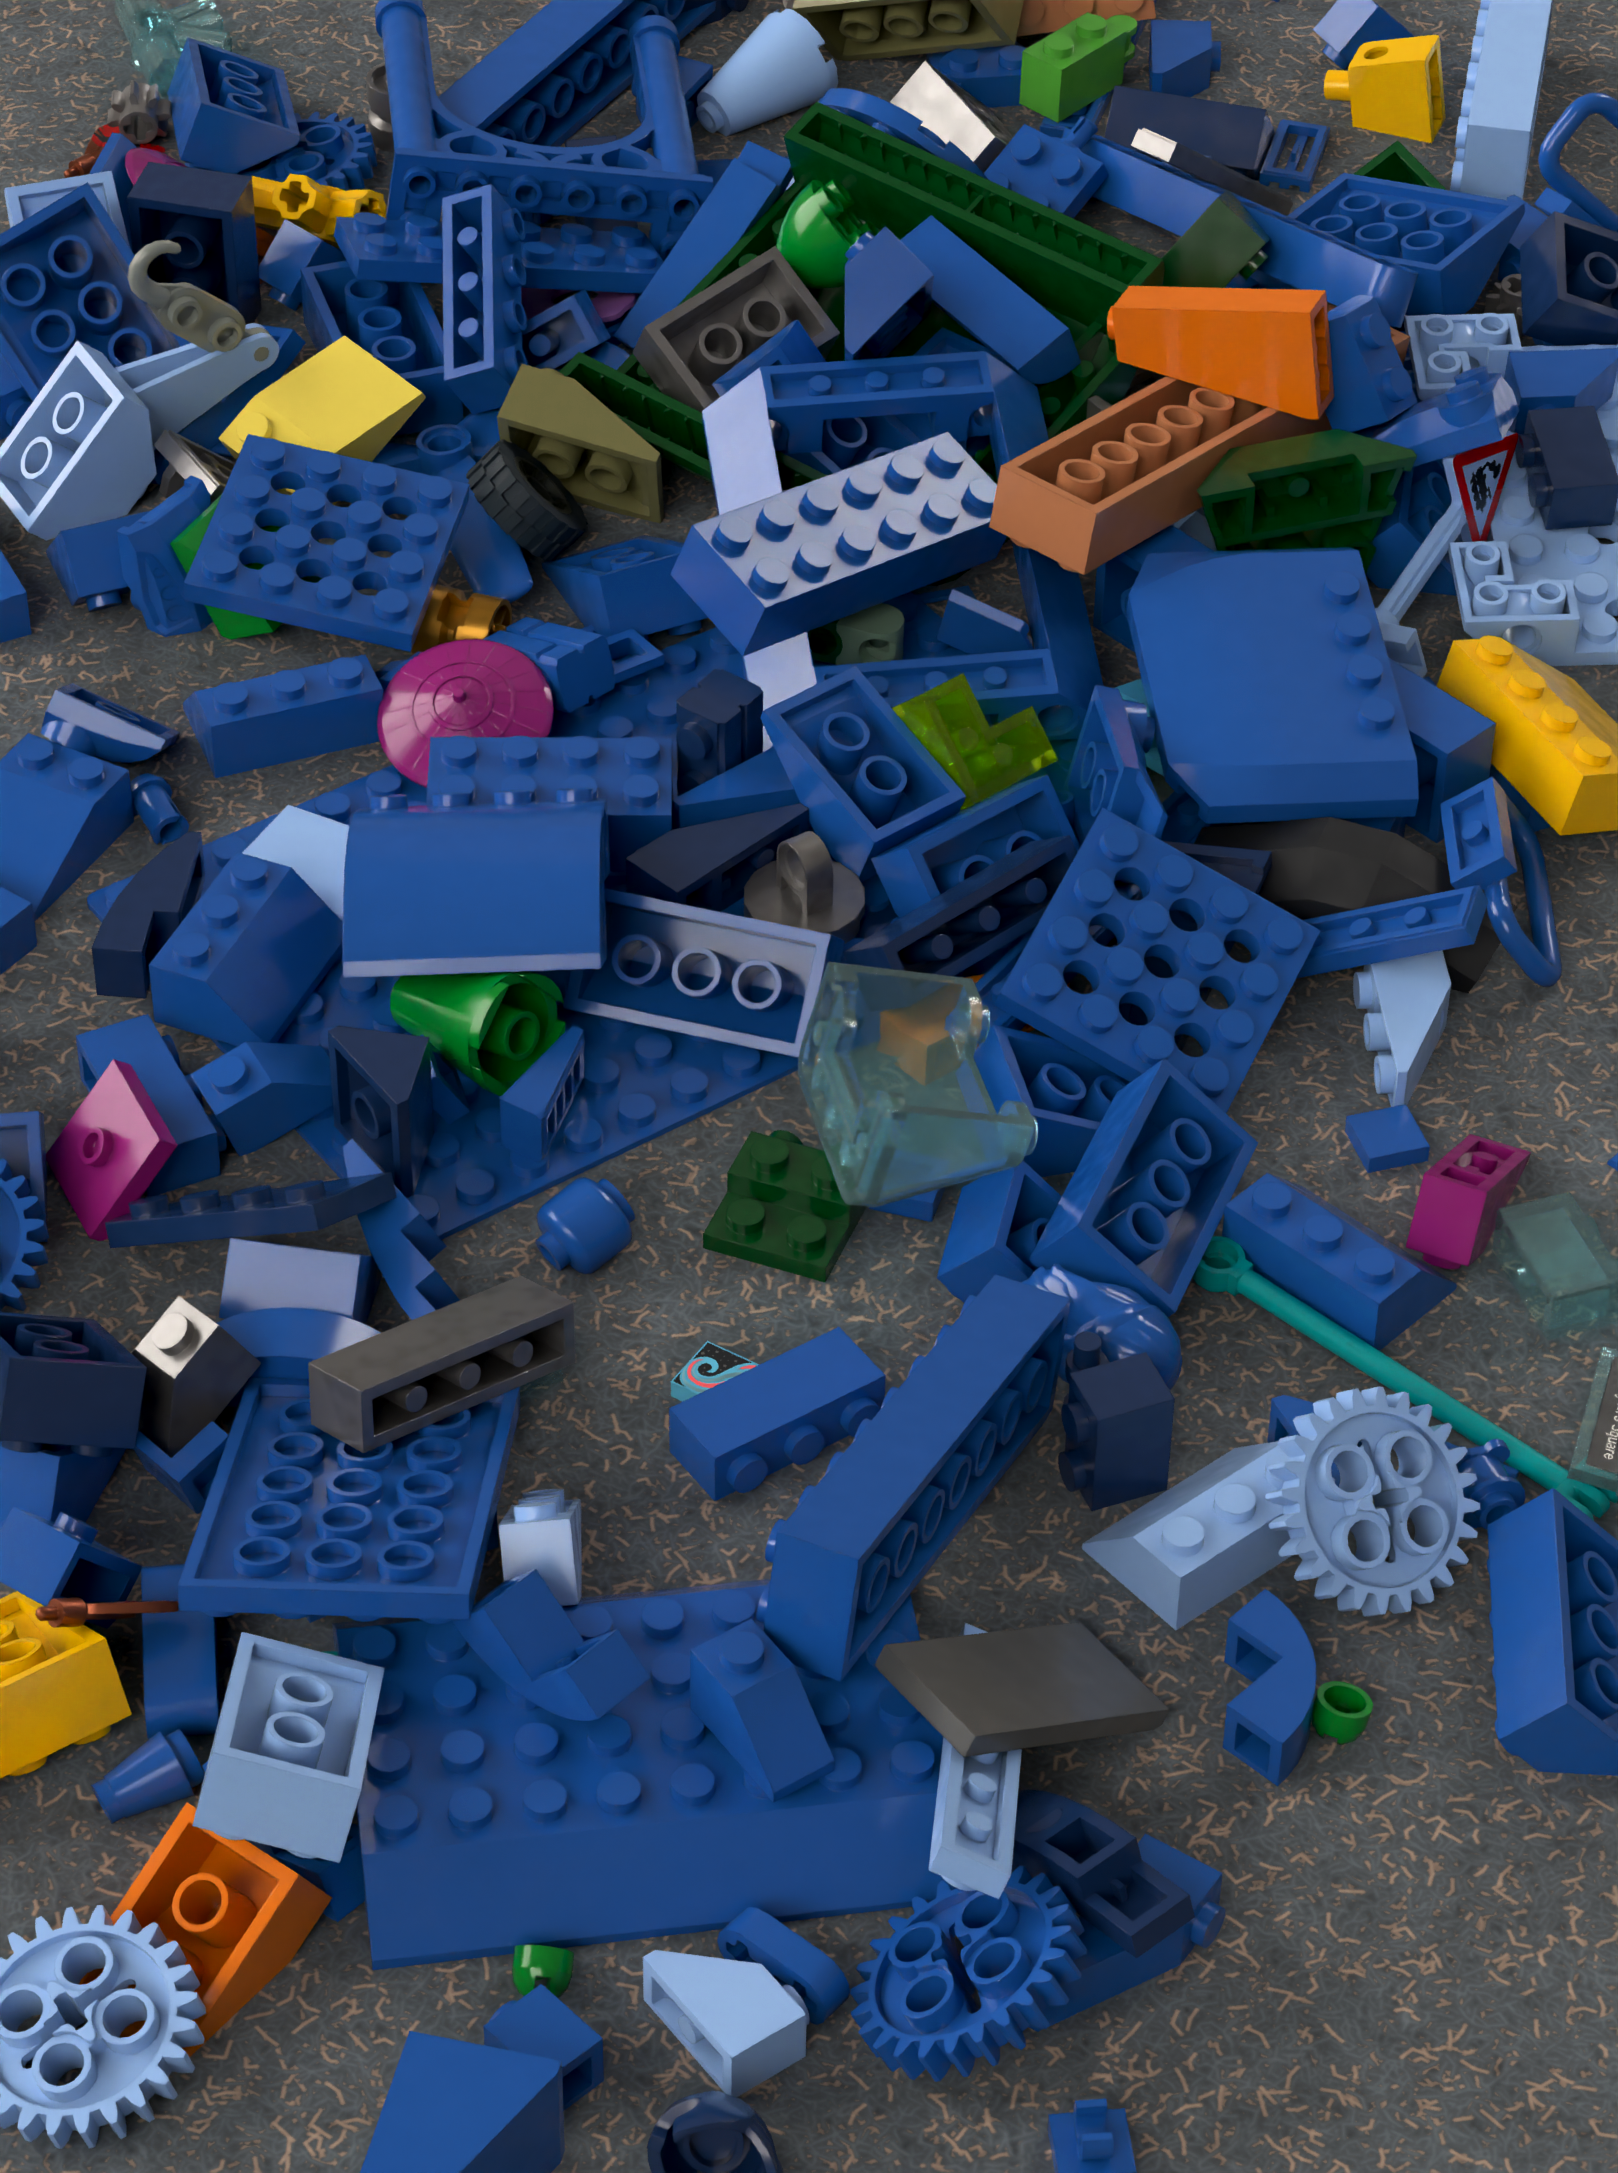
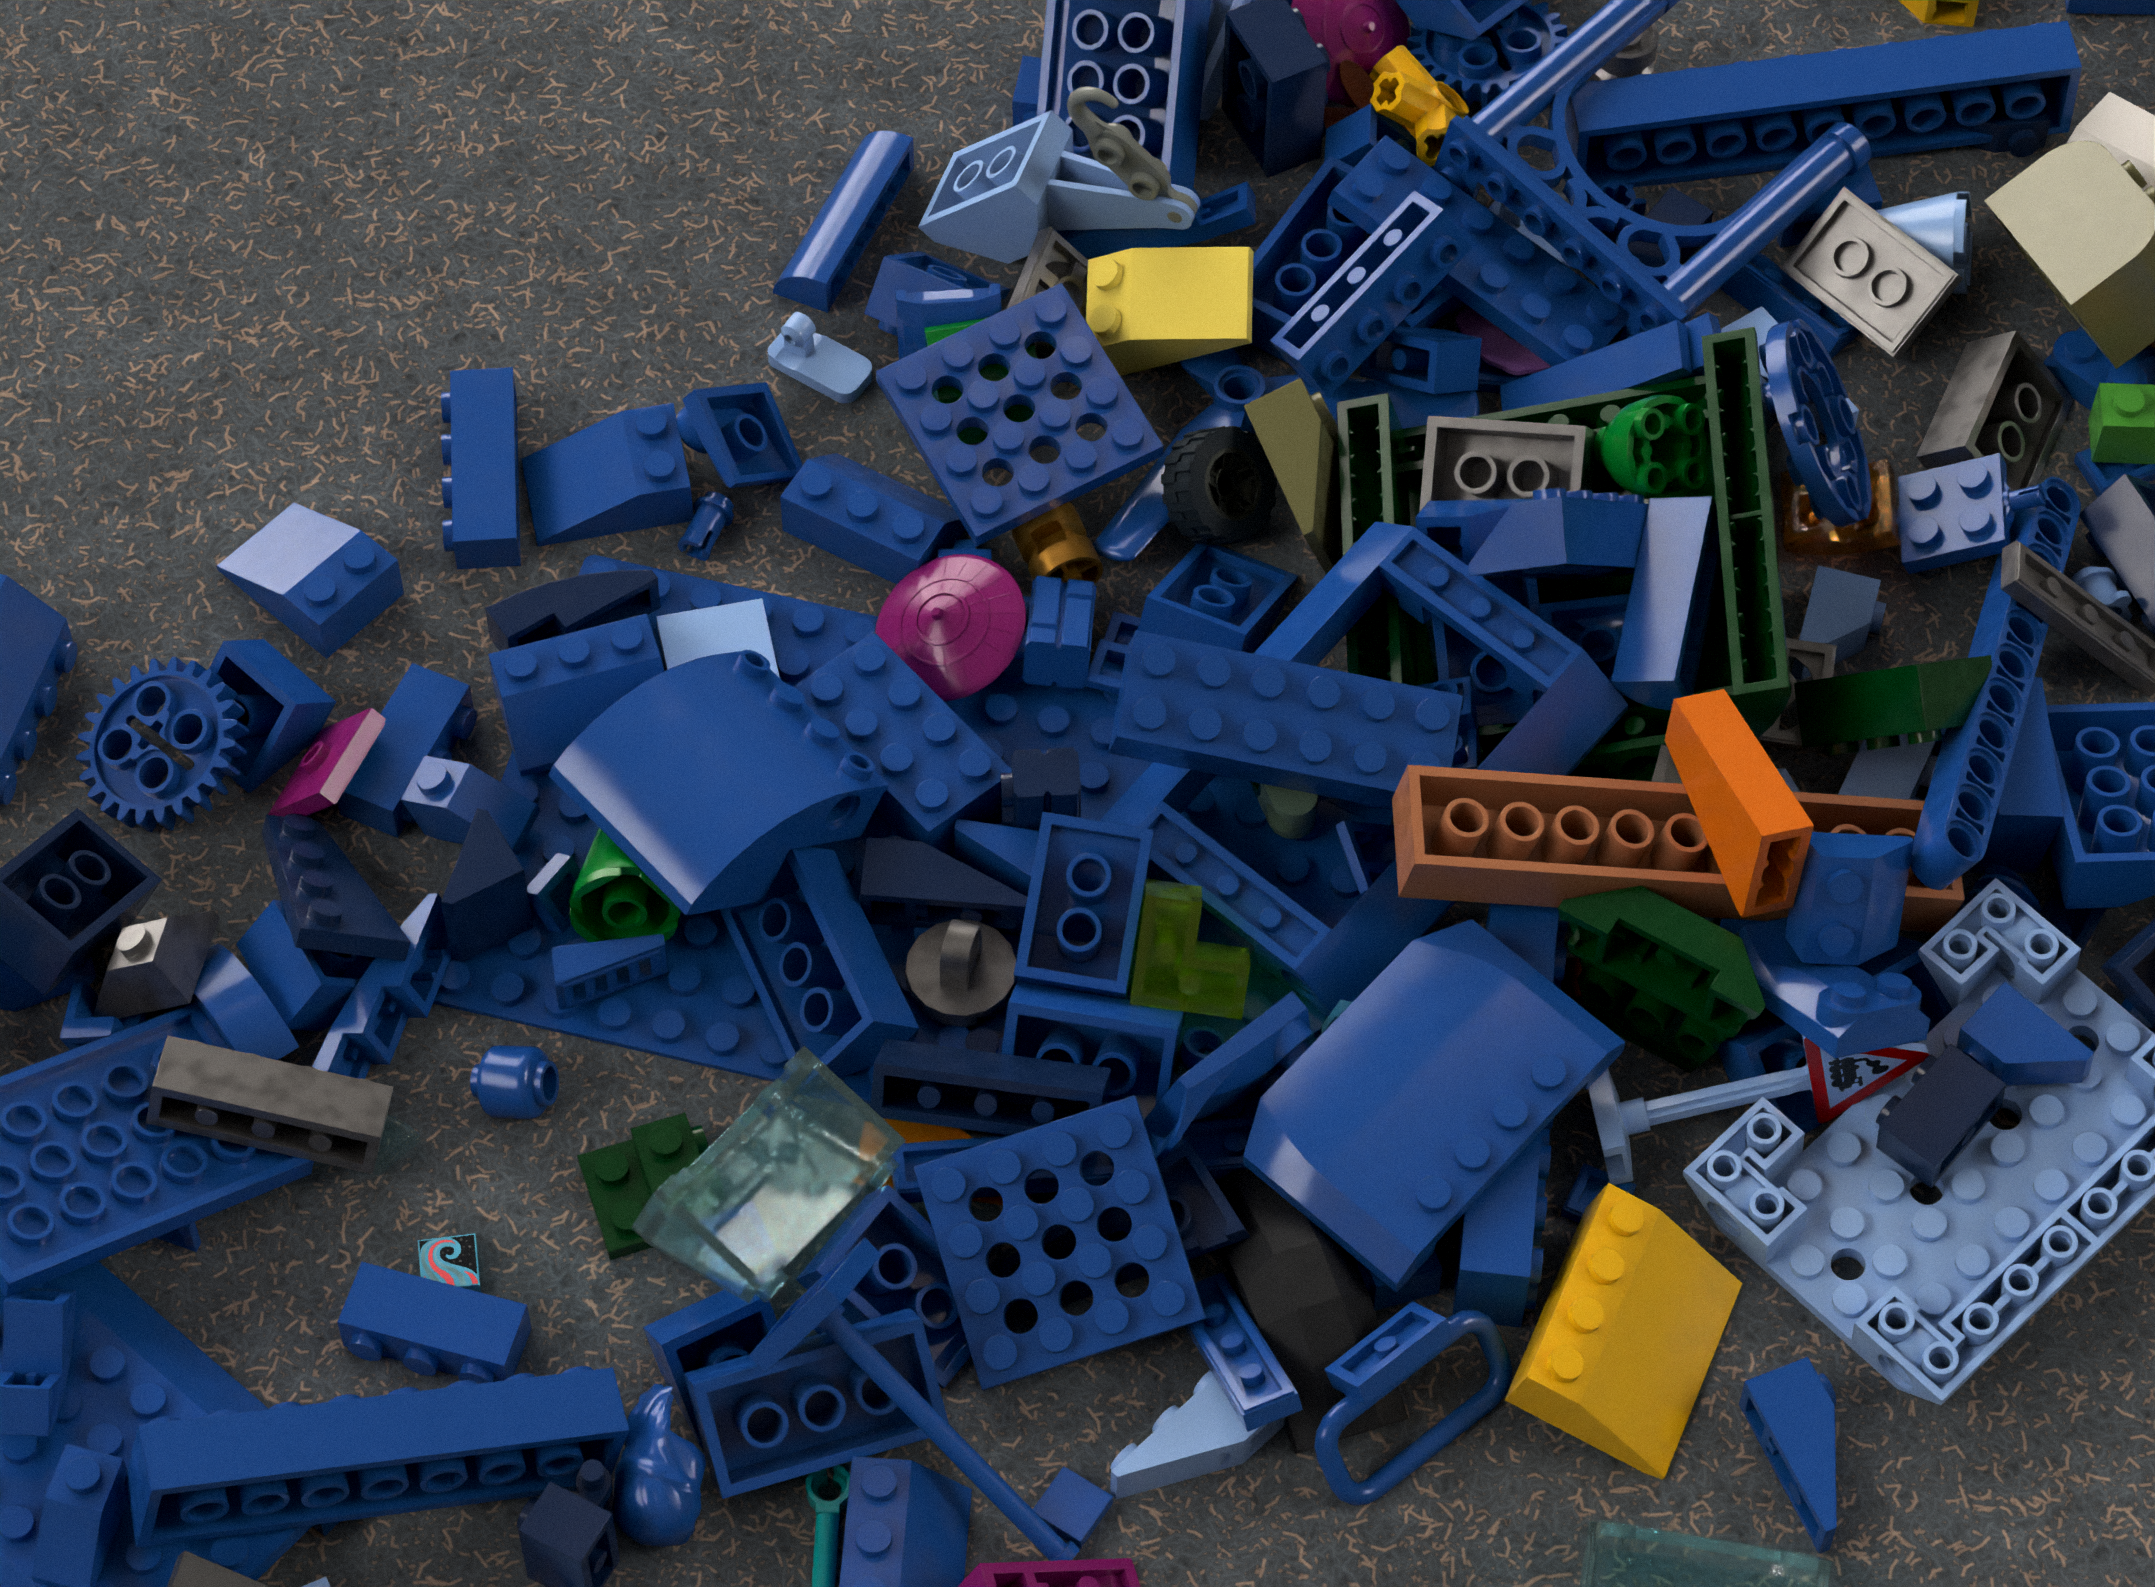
camera: 50 degrees right, 15 degrees up
(78, 659) = (819, 360): none -> light blue piece
(545, 1536) = (168, 1284): light blue slope -> none
(757, 98) = (1871, 273): none -> flat silver tile
(1101, 1094) = (822, 1311): none -> blue tile

